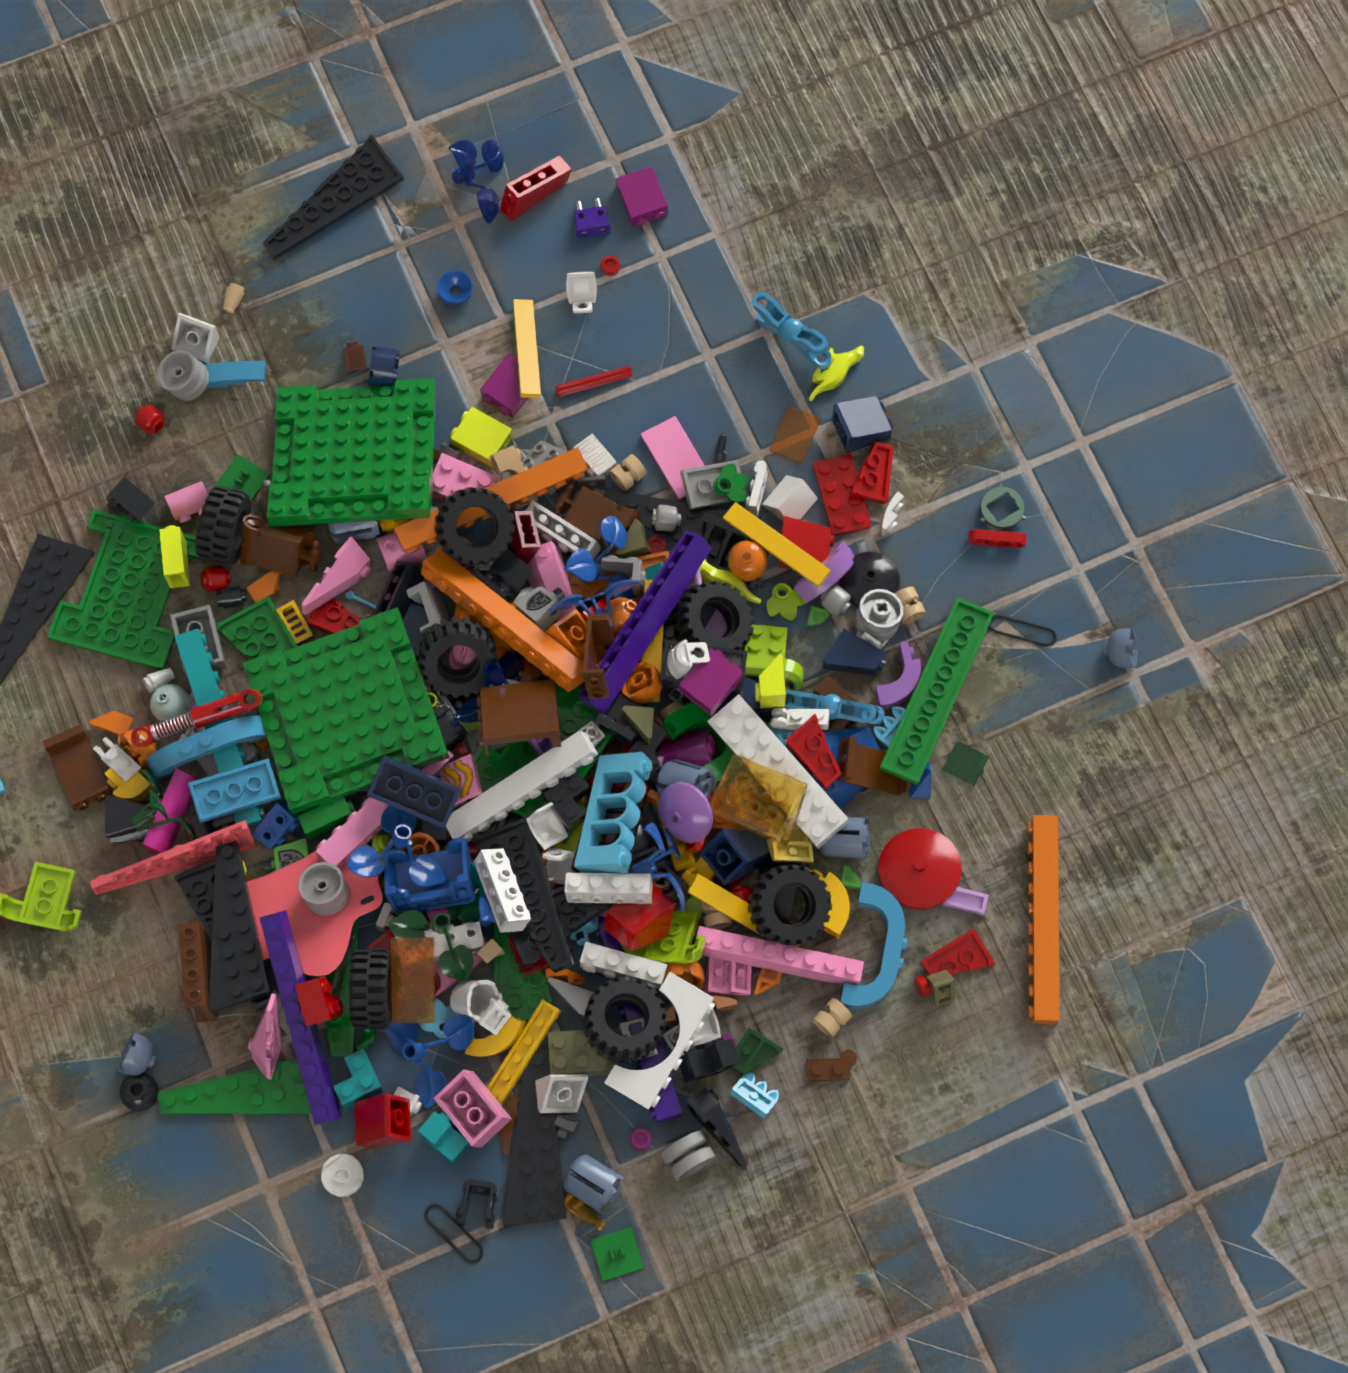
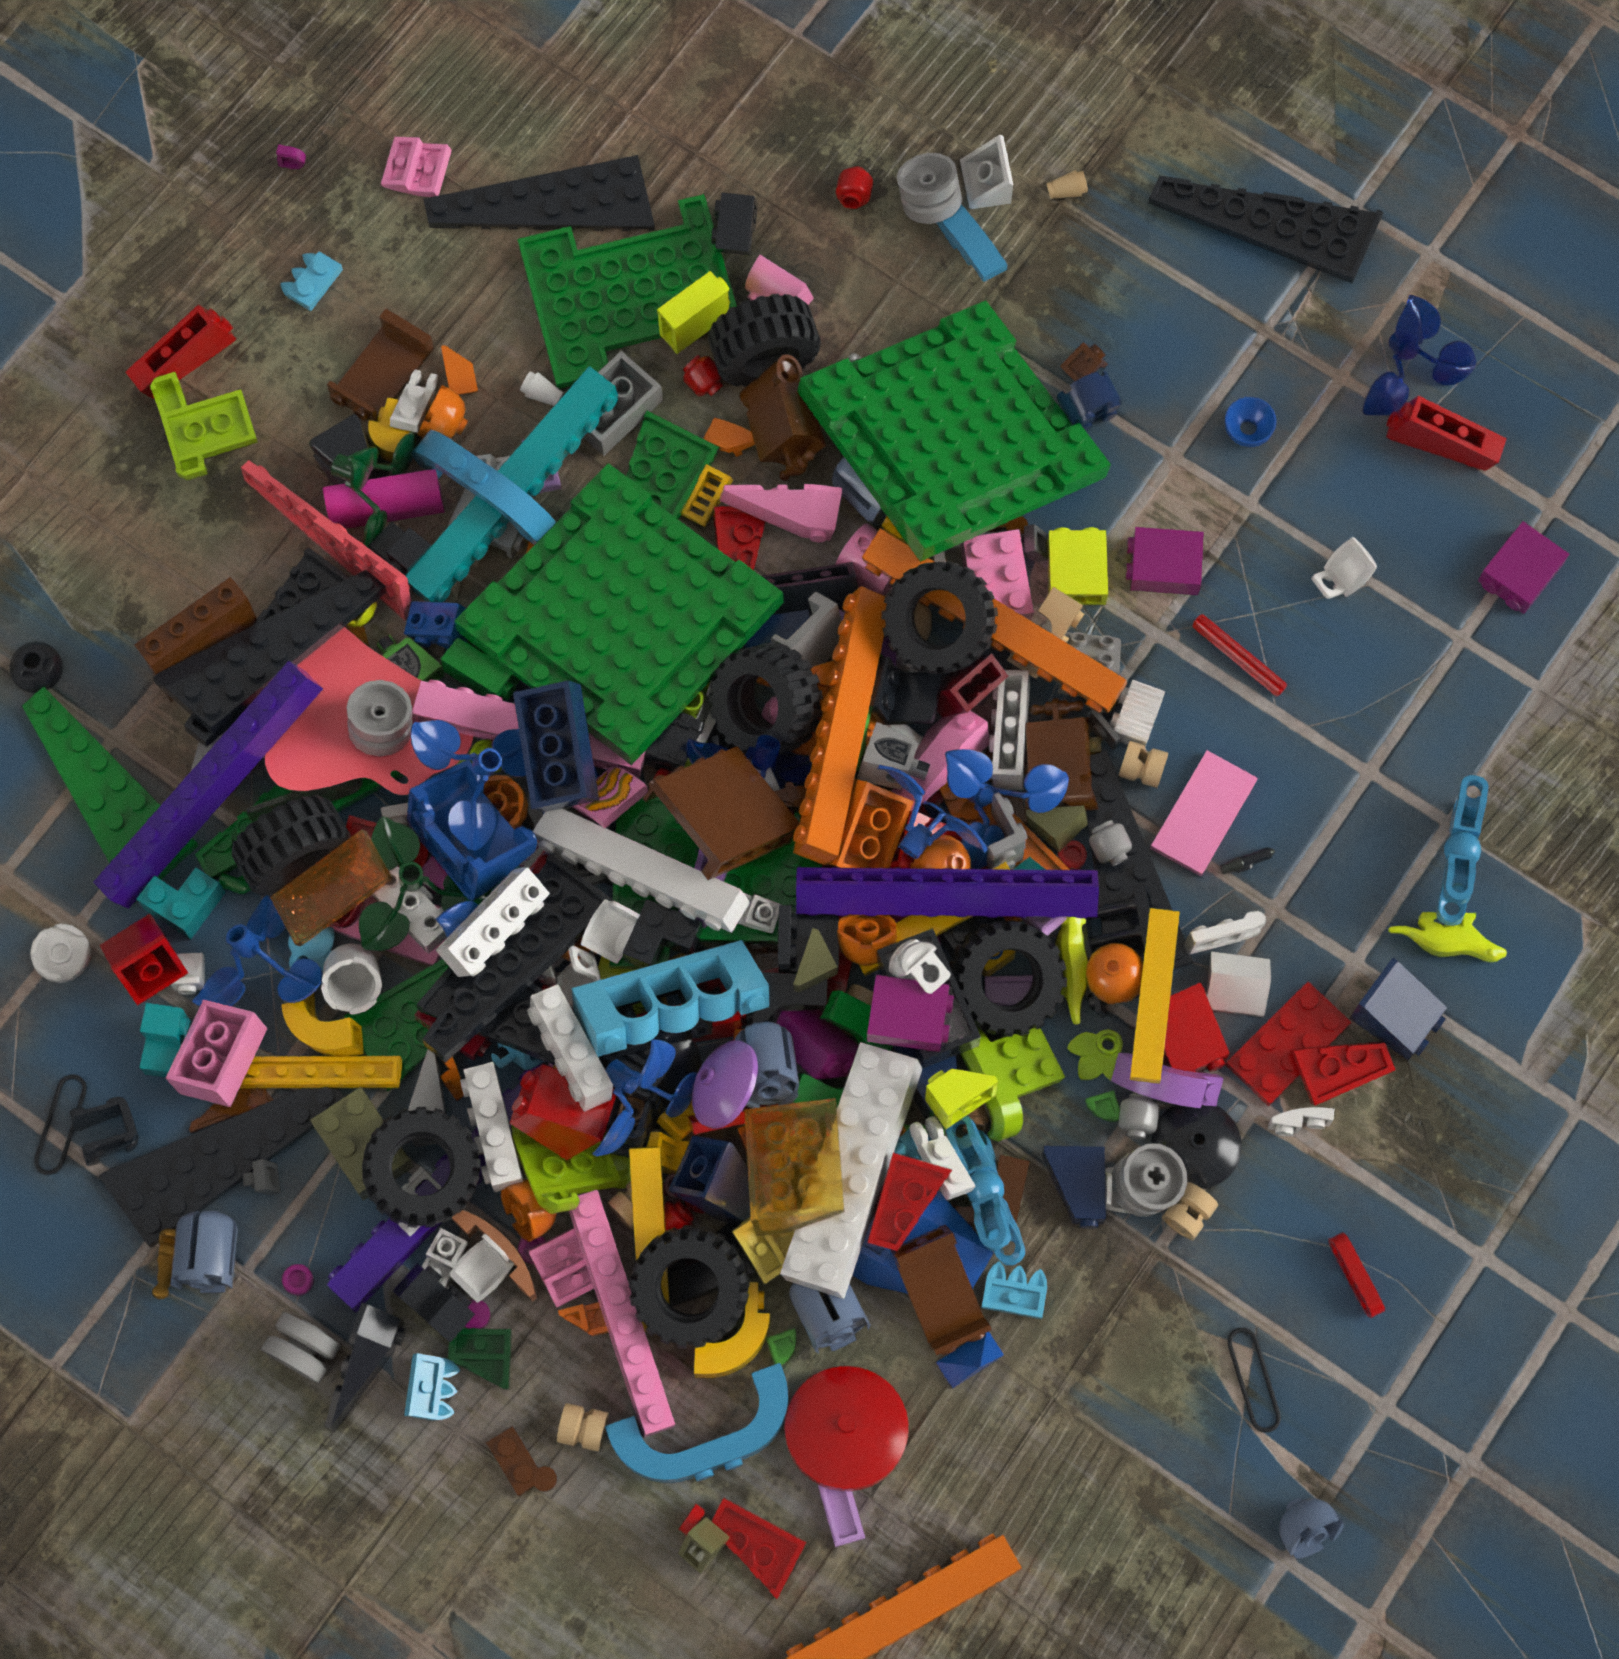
camera: 60 degrees right, 0 degrees up
(136, 1055) = (72, 637): sand blue cylinder -> none
(170, 702) = (515, 418): light aqua cylinder -> none
(198, 717) = (505, 451): red piece -> none
(231, 597) = (692, 407): black brick -> none
(234, 790) = (442, 546): dark azure tile -> none
(243, 476) = (847, 332): green piece -> none
(267, 1039) = (166, 767): bright pink wedge -> none
(316, 1001) = (228, 792): red brick -> none
(350, 595) = (780, 538): medium azure hinge -> none
(489, 951) = (423, 958): tan slope -> none
(495, 1016) = (339, 1009): white bracket -> none
(526, 348) = (1223, 549): yellow tile -> none
(560, 1093) = (294, 1147): white slope -> none
(591, 220) = (1449, 528): dark purple piece -> none
(598, 634) = (889, 838): reddish brown panel -> none
(610, 265) = (1406, 585): red tile -> none
(617, 1254) = (139, 1334): green piece -> none
(645, 1084) = (482, 1238): white arch -> none
(699, 485) = (1194, 876): light grey plate -> none
(733, 483) = (1211, 899): green plate -> none
(795, 434) = (1332, 939): clear orange piece -> none
(900, 690) = (1082, 1270): medium lavender arch -> none
(937, 691) = (1095, 1313): green plate -> none
(965, 763) = (1026, 1408): clear green piece -> none
(1011, 520) = (1414, 1237): sand green piece -> none

